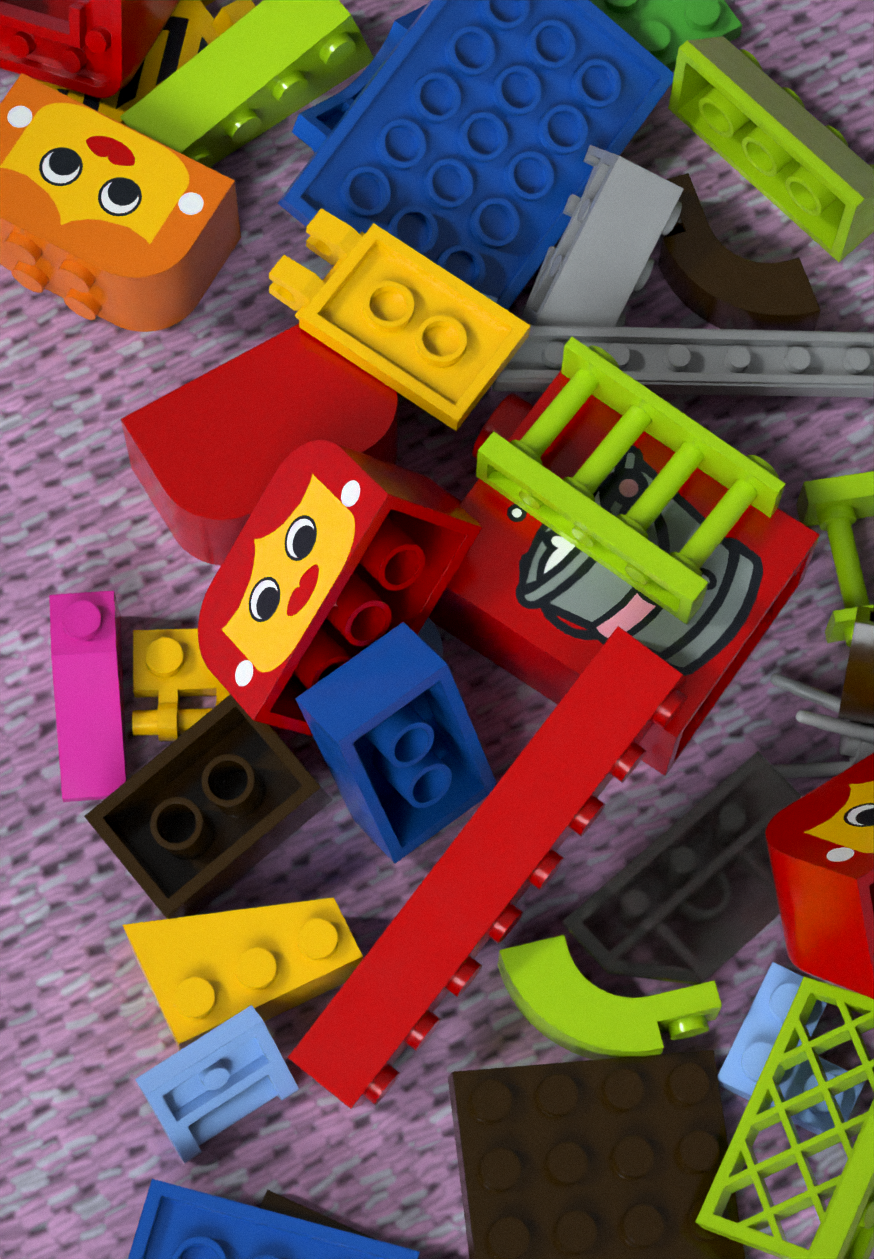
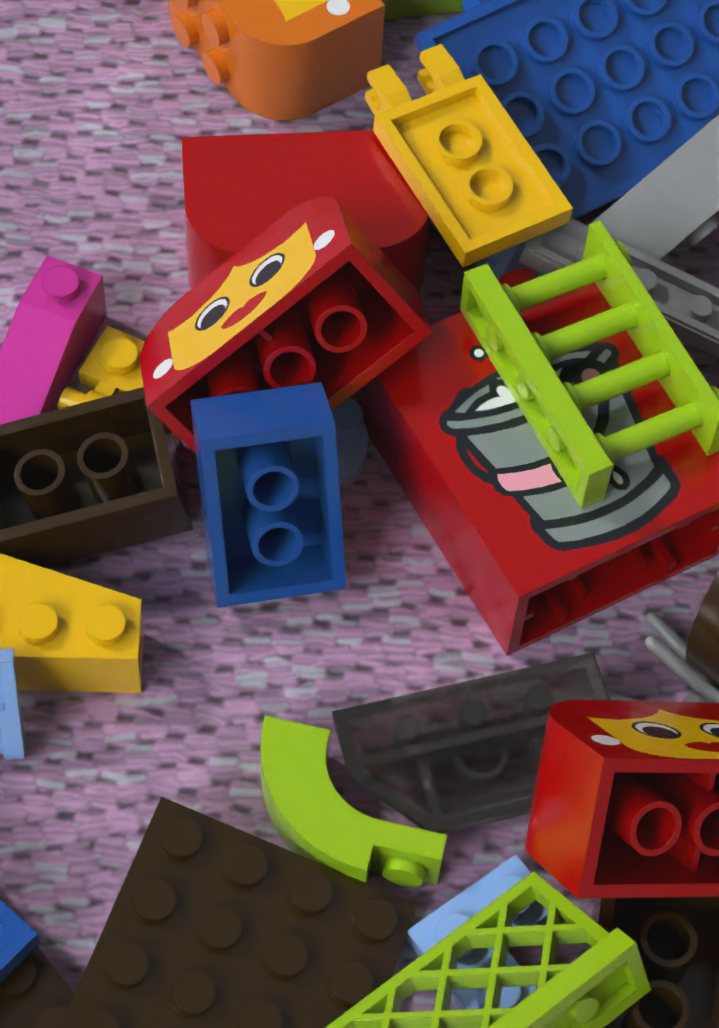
camera: 25 degrees right, 10 degrees down
(489, 869) = (289, 634): red brick -> none

